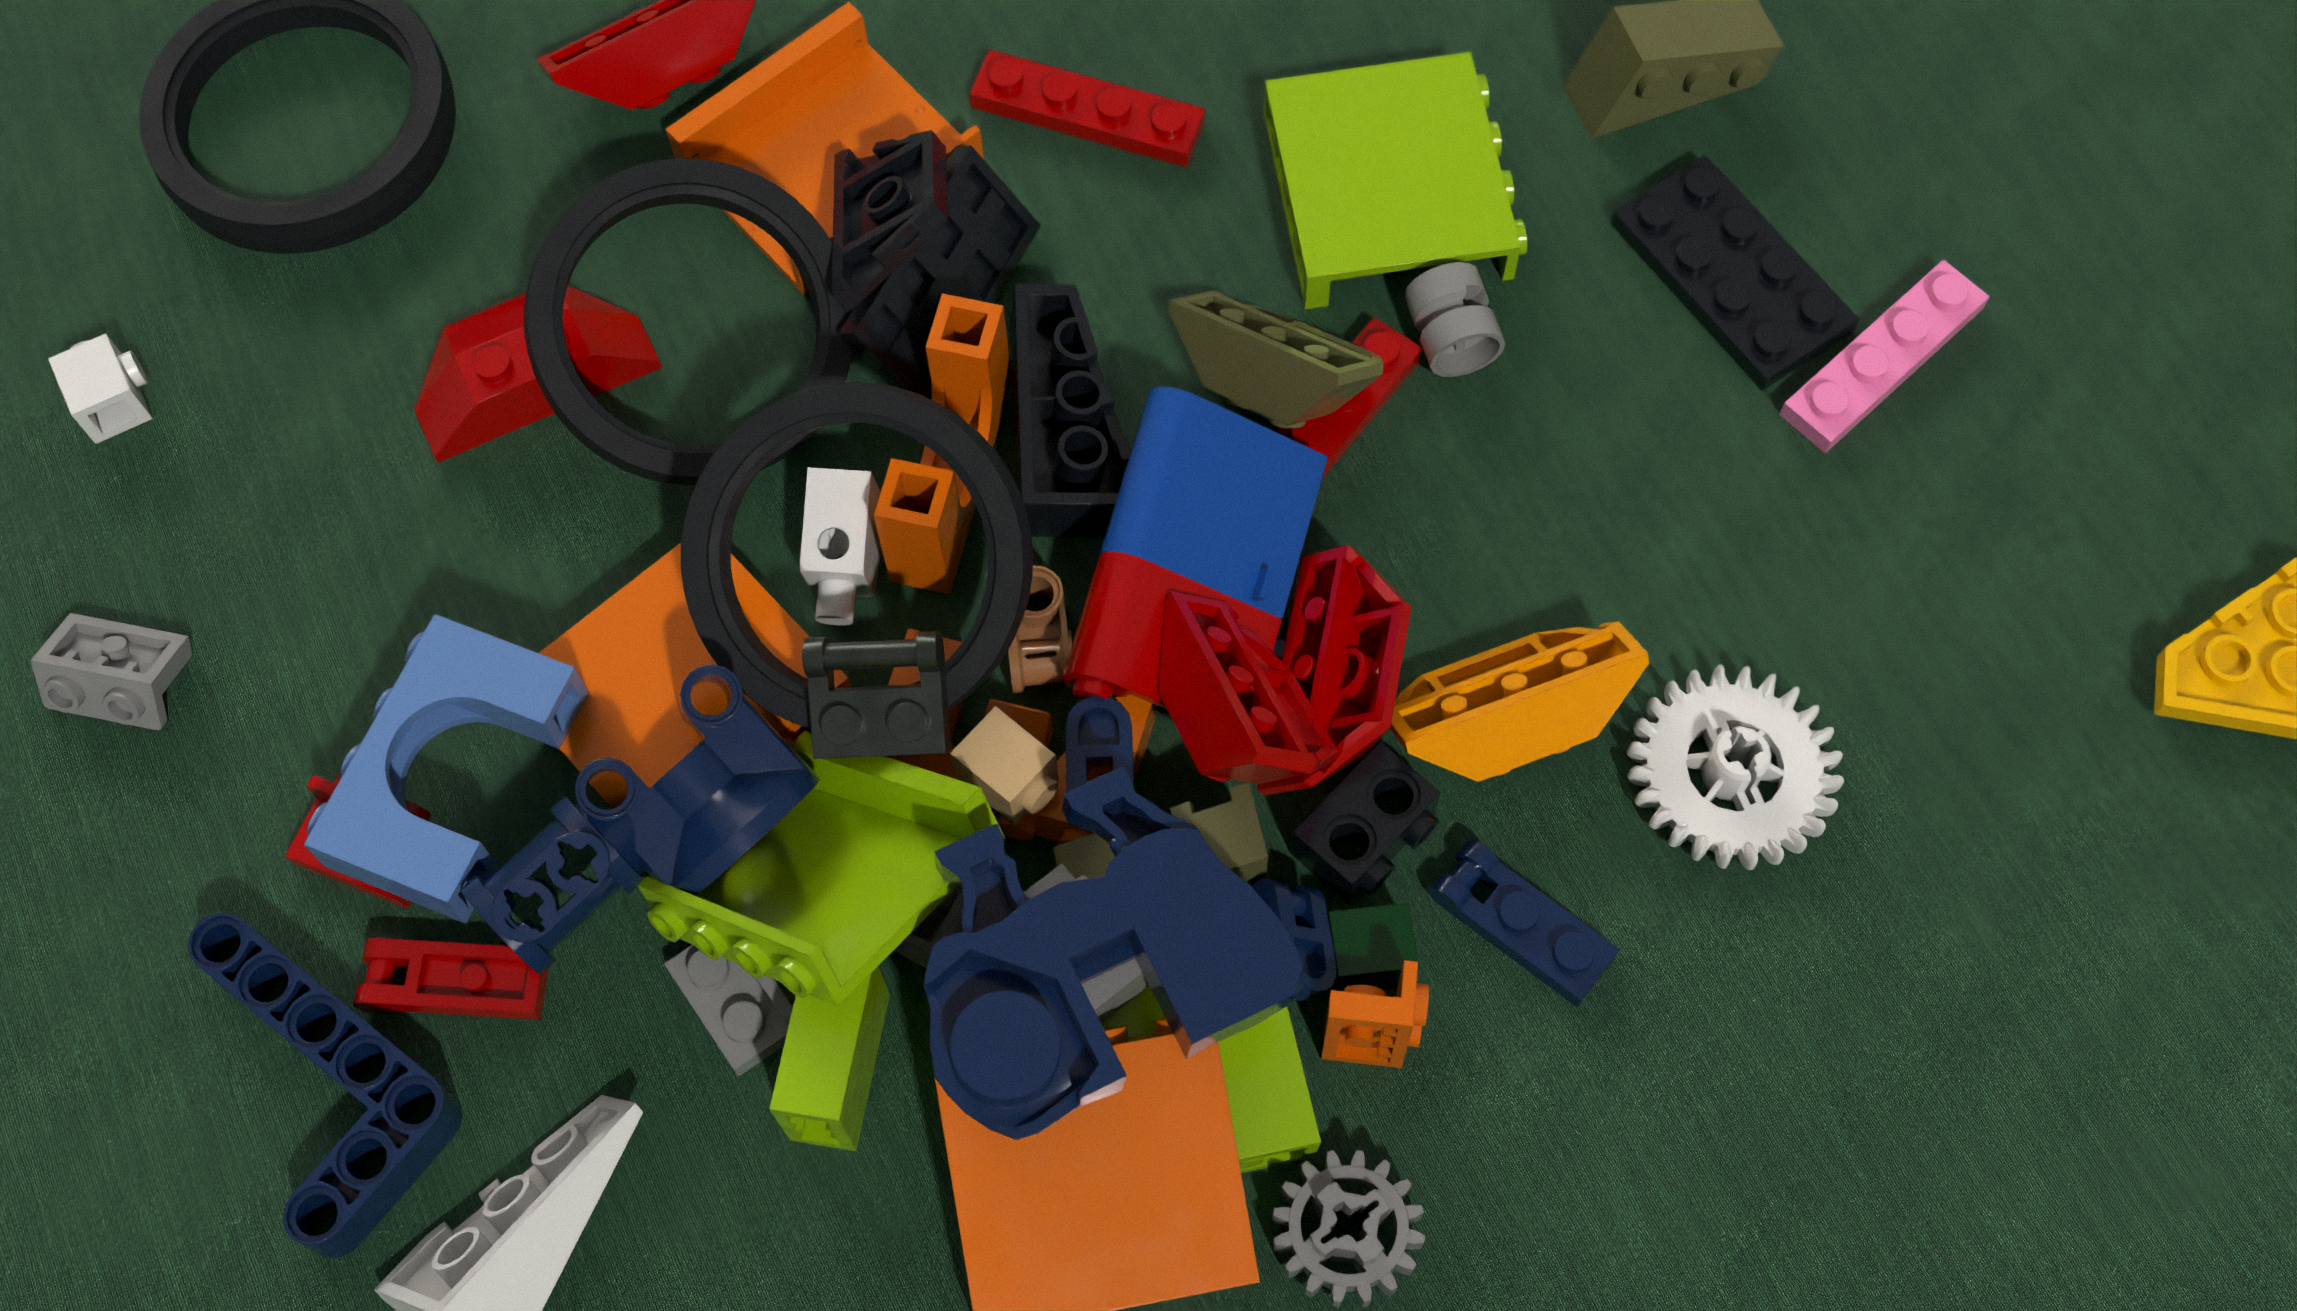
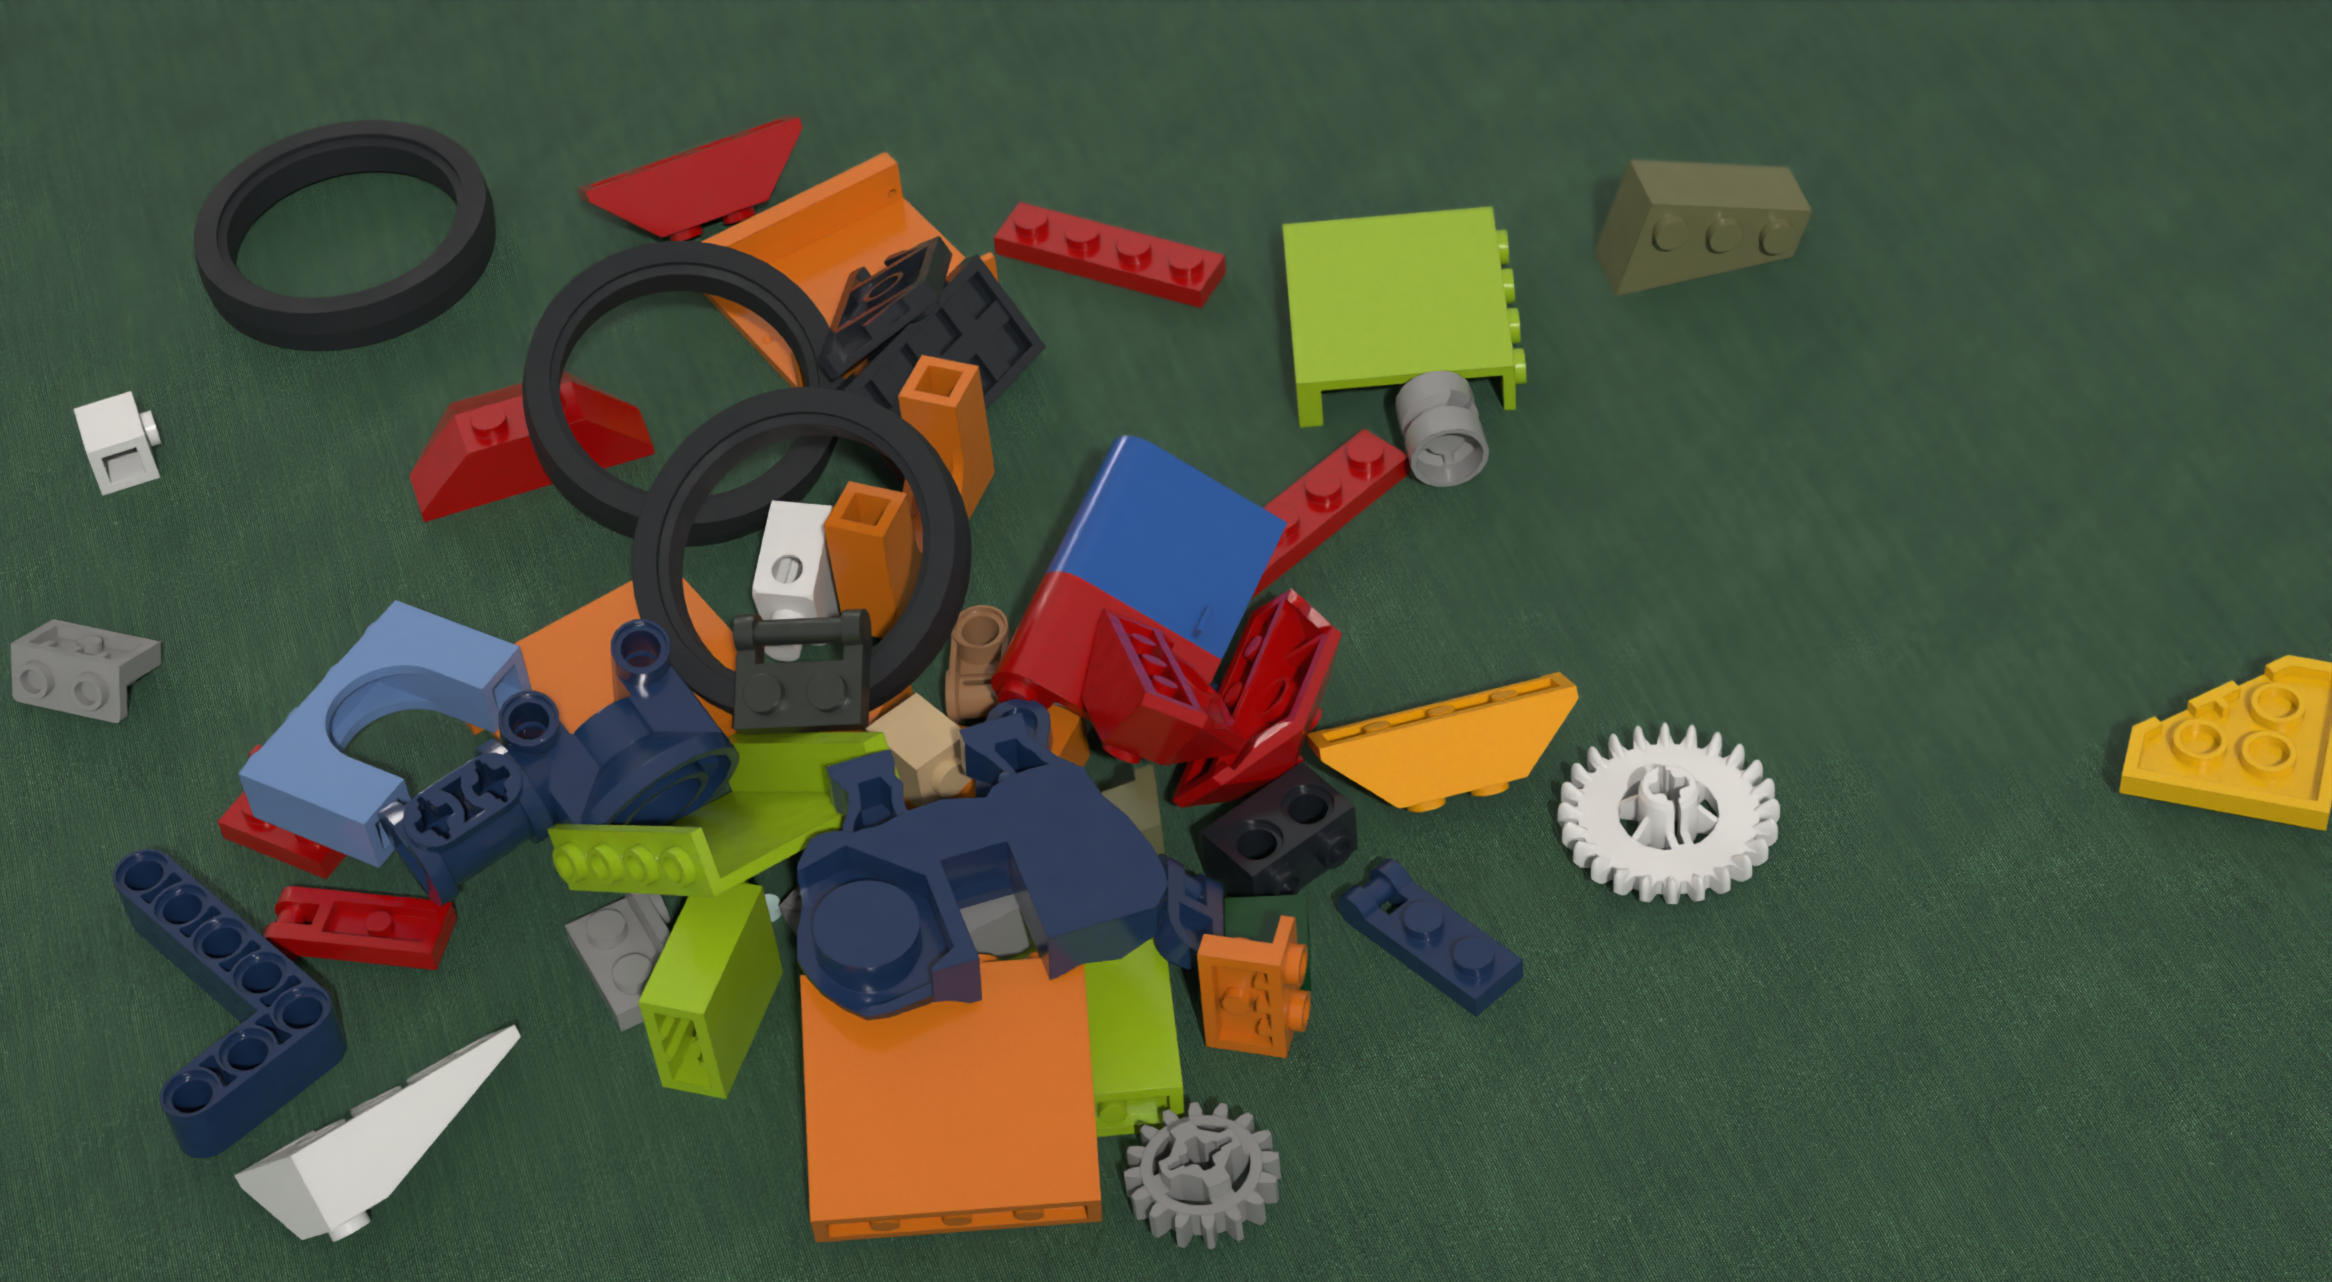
camera: 10 degrees right, 20 degrees down
(1063, 416) = (1029, 486): black wedge -> none
(1270, 359) = (1254, 450): olive wedge -> none
(1734, 272) = (1740, 407): black plate -> none
(1884, 356) = (1884, 481): bright pink plate -> none

